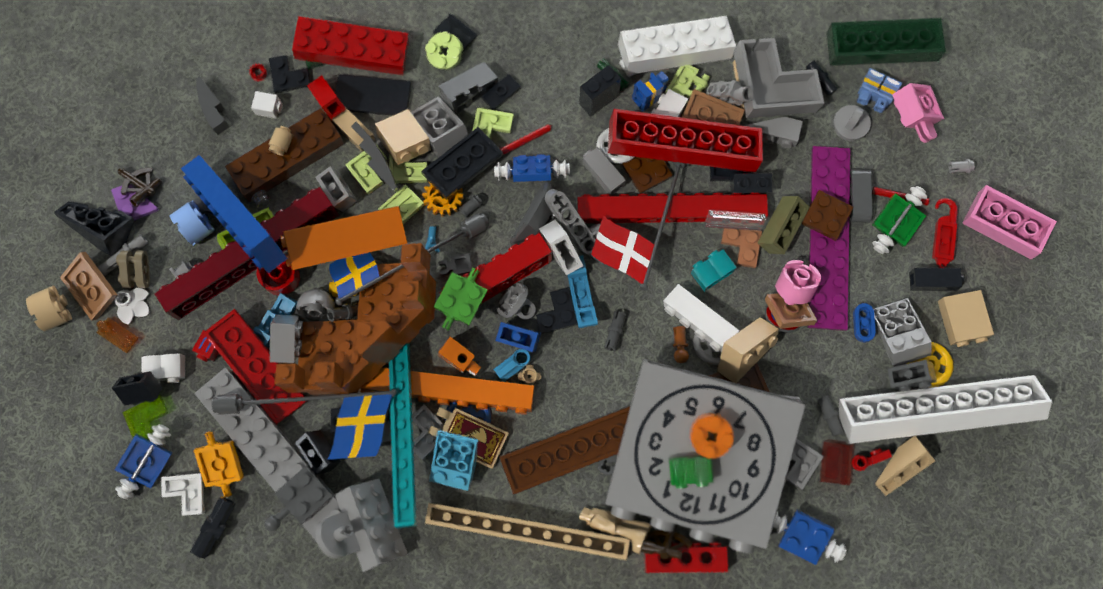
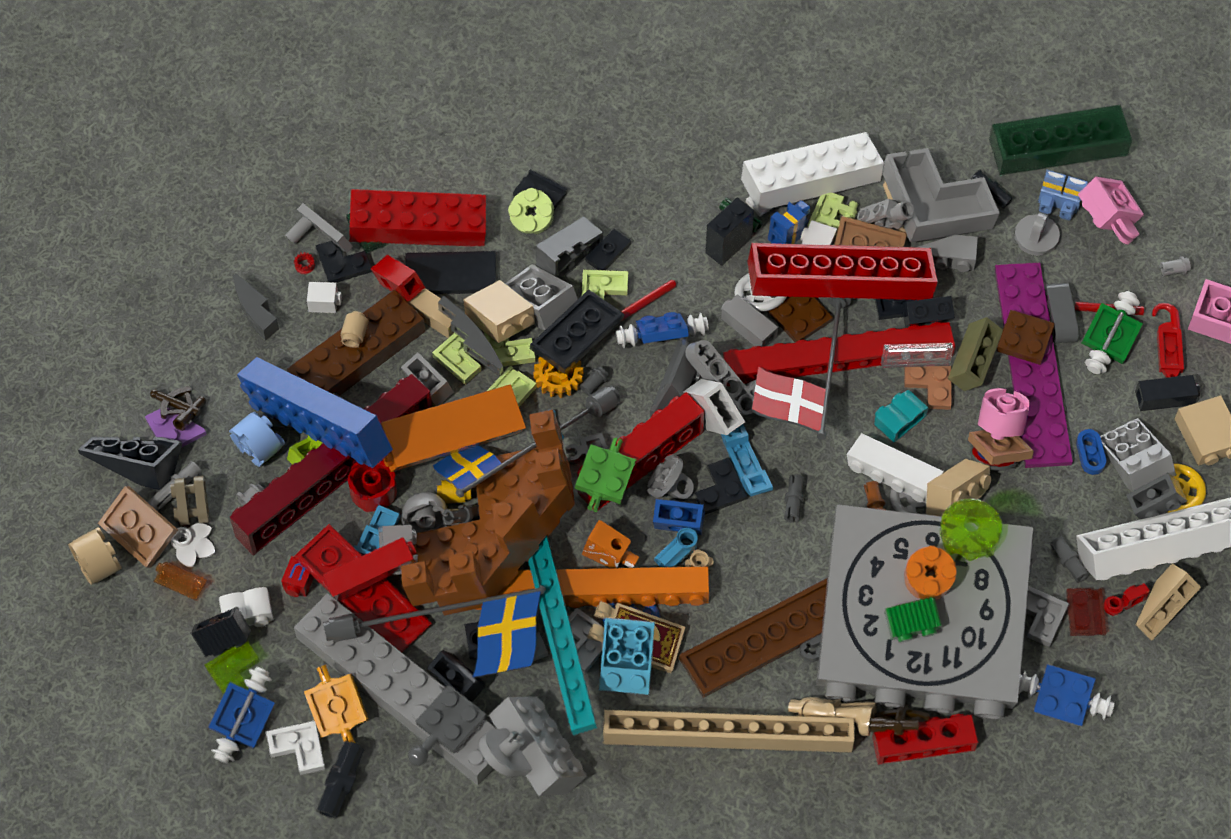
camera: 10 degrees left, 15 degrees down
(253, 359) = (369, 568): none -> red slope
(269, 36) = (311, 219): none -> light grey piece
(742, 411) = (966, 543): none -> clear neon green plate

